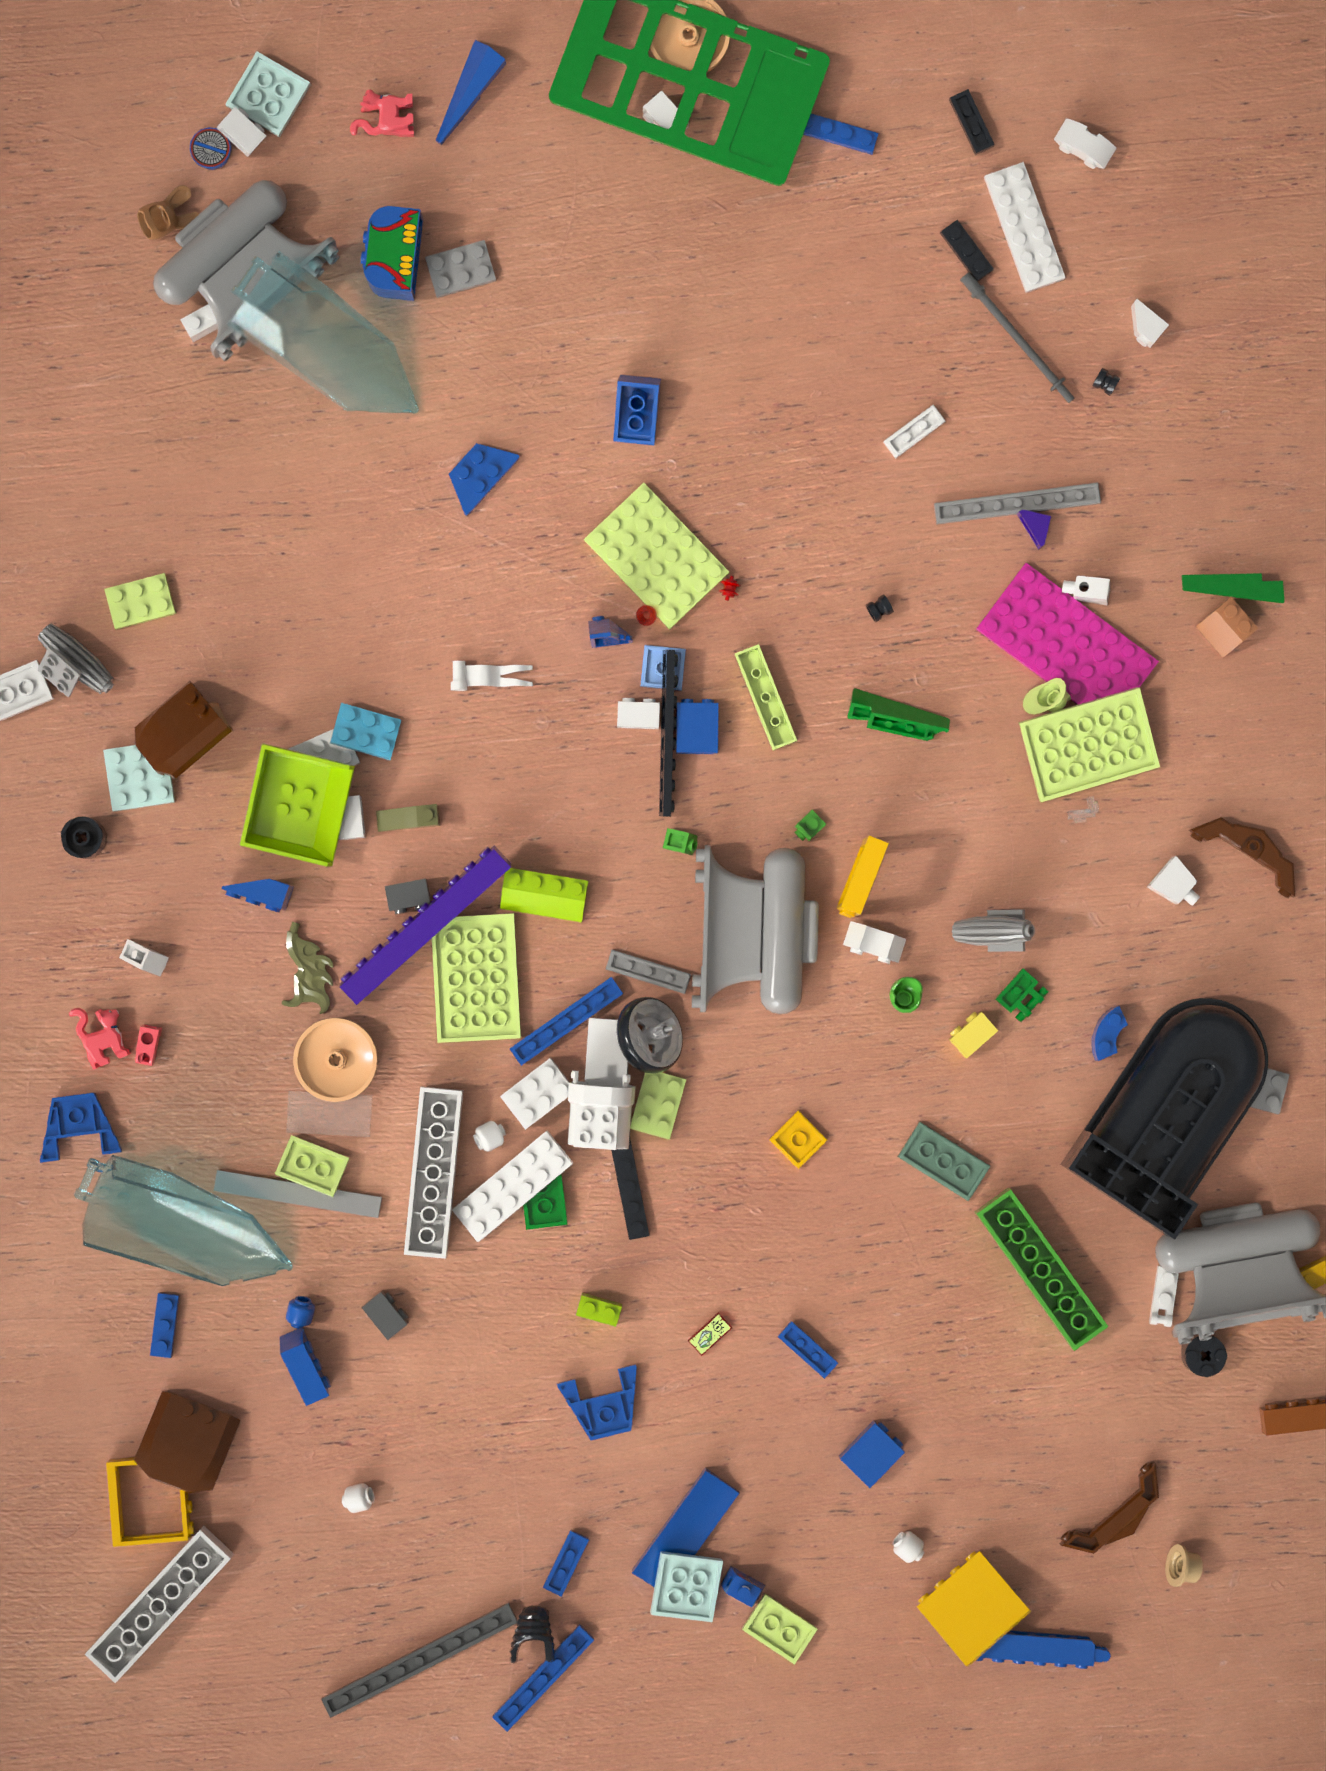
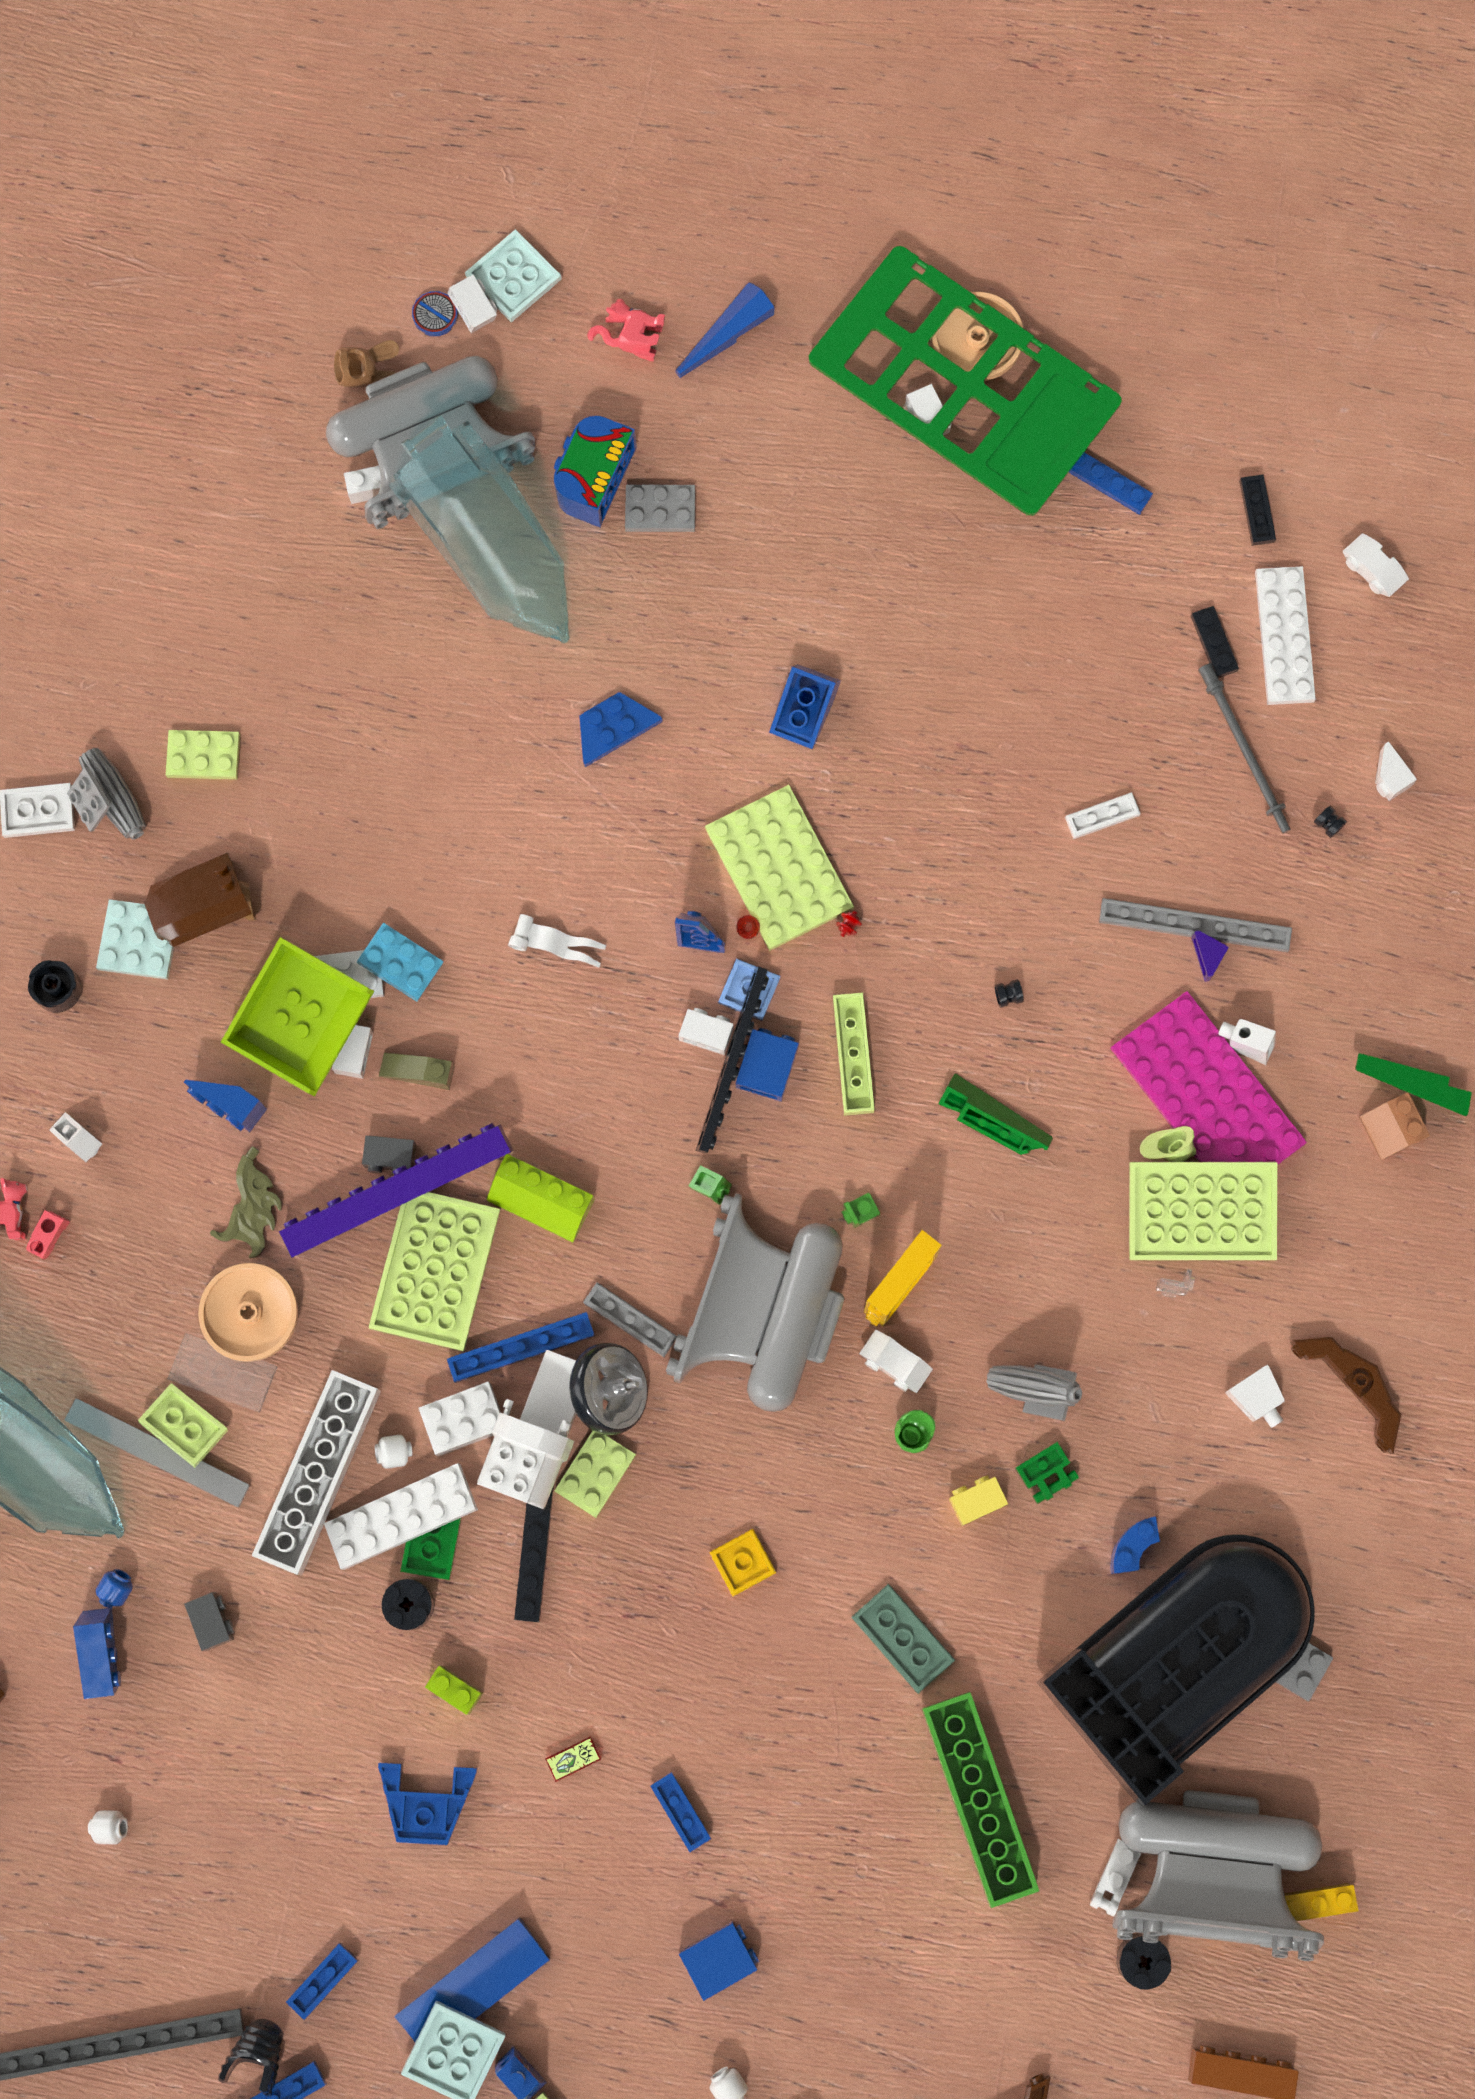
camera: 25 degrees right, 10 degrees down
(536, 1265) = (393, 1602): none -> black brick

